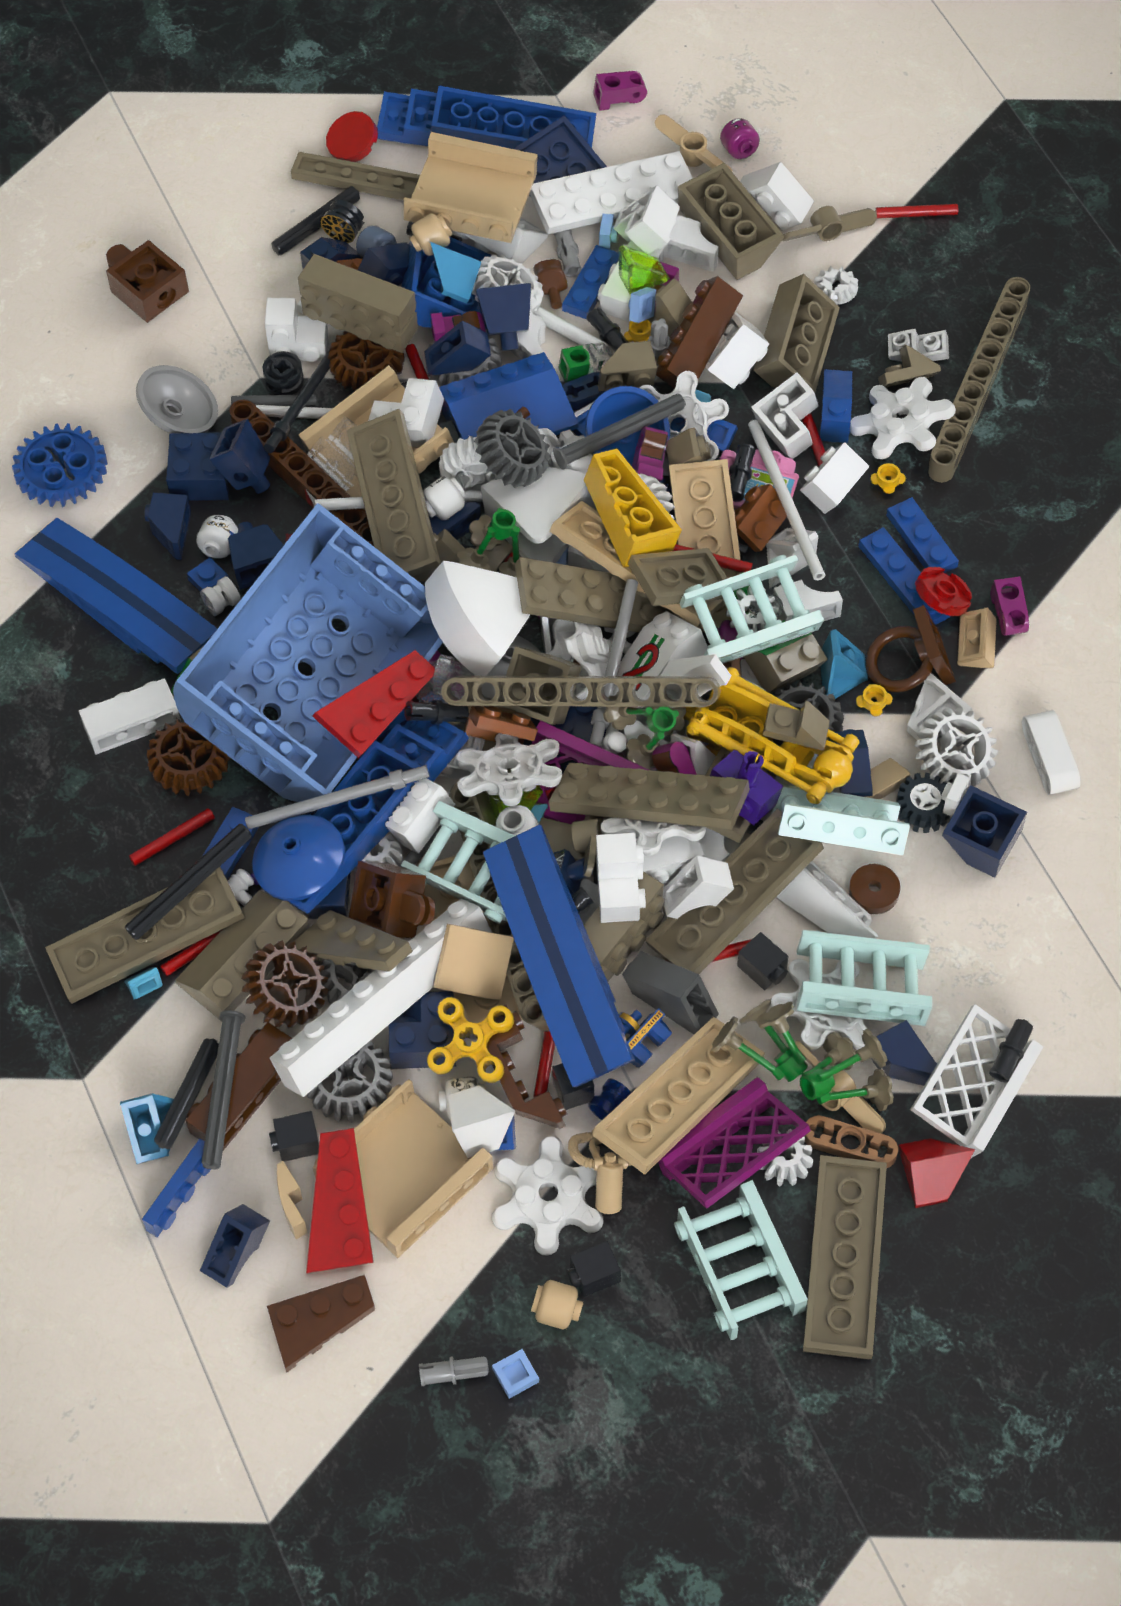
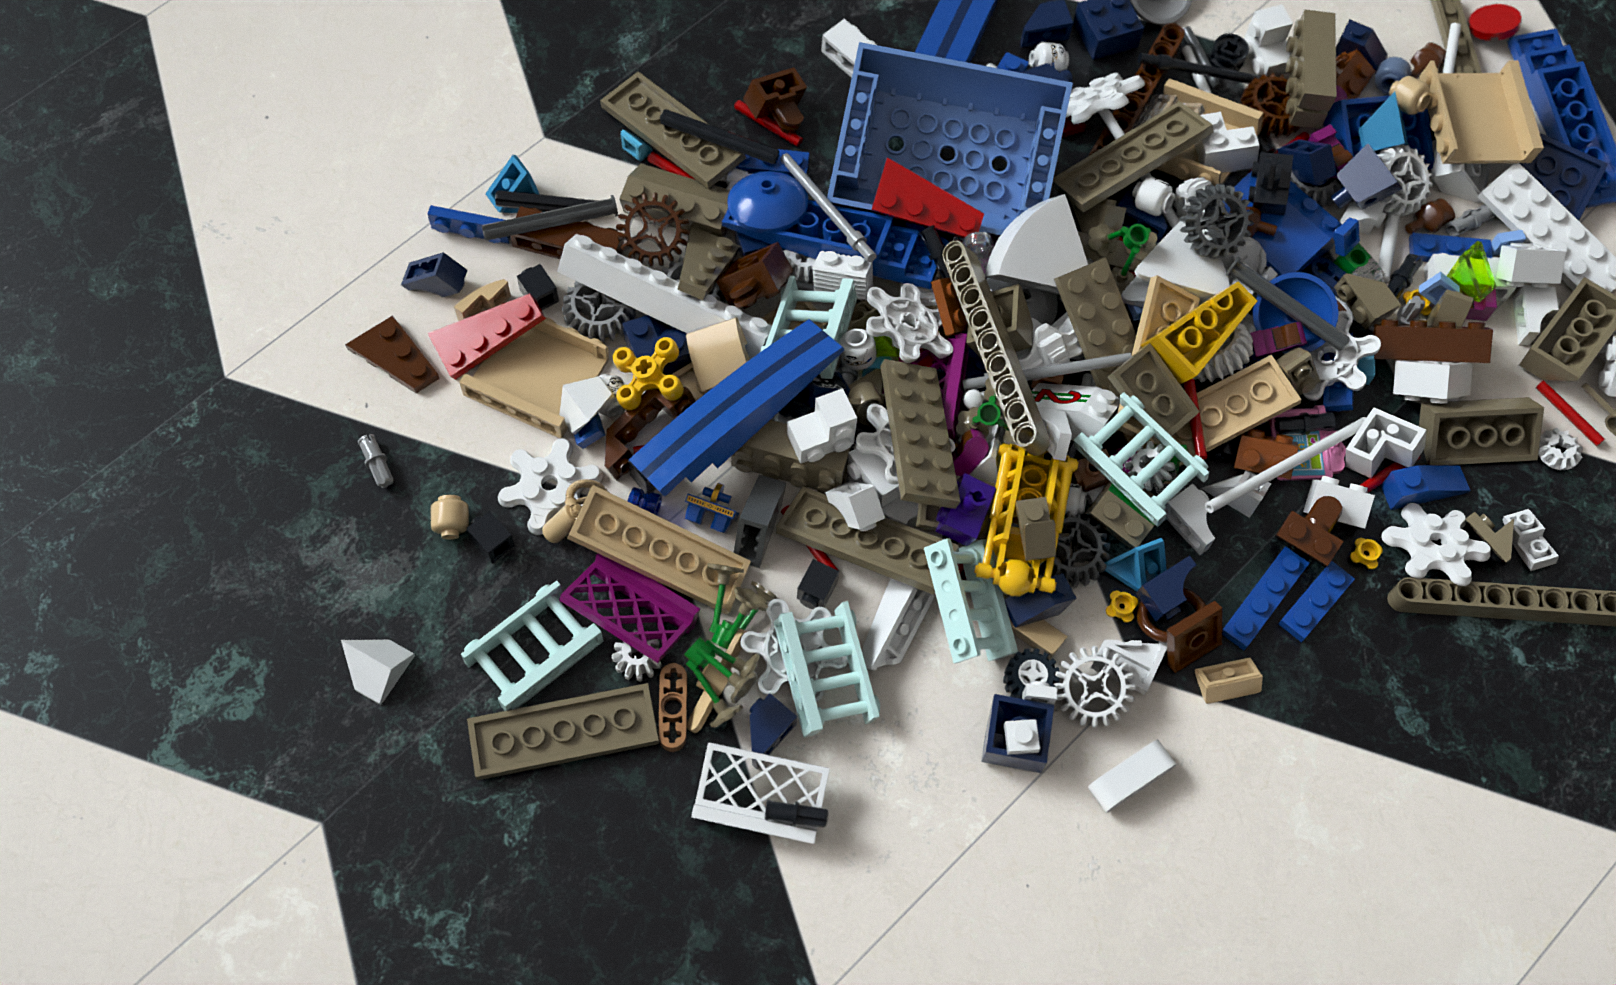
camera: 65 degrees right, 5 degrees up
(155, 811) = (778, 96): none -> reddish brown brick
(171, 765) = (835, 94): reddish brown gear -> none
(241, 457) = (1123, 42): dark blue torso -> none
(304, 486) = (1101, 95): none -> white plate
(310, 223) = (1393, 26): black axle -> none
(343, 219) = (1402, 42): black wheel -> none
(371, 208) = (1429, 53): none -> reddish brown piece
(376, 187) = (1452, 46): none -> white bar
(387, 262) = (1368, 81): dark blue slope -> none
(477, 388) = (1272, 183): none -> black brick
(515, 1373) = (385, 506): light blue plate -> none
(557, 354) = (1346, 236): none -> blue plate
(711, 1428) = (375, 666): none -> white slope
(801, 262) = (1570, 413): none -> red piece
(858, 509) = (1313, 533): none -> reddish brown brick
(877, 876) = (924, 672): reddish brown piece -> none
(879, 652) = (1165, 592): none -> dark blue arch
(933, 1169) = (667, 780): slope -> none
(943, 592) = (1261, 632): red tile -> none
(996, 822) = (1021, 737): none -> white plate
(1010, 605) = (1275, 697): magenta leg -> none

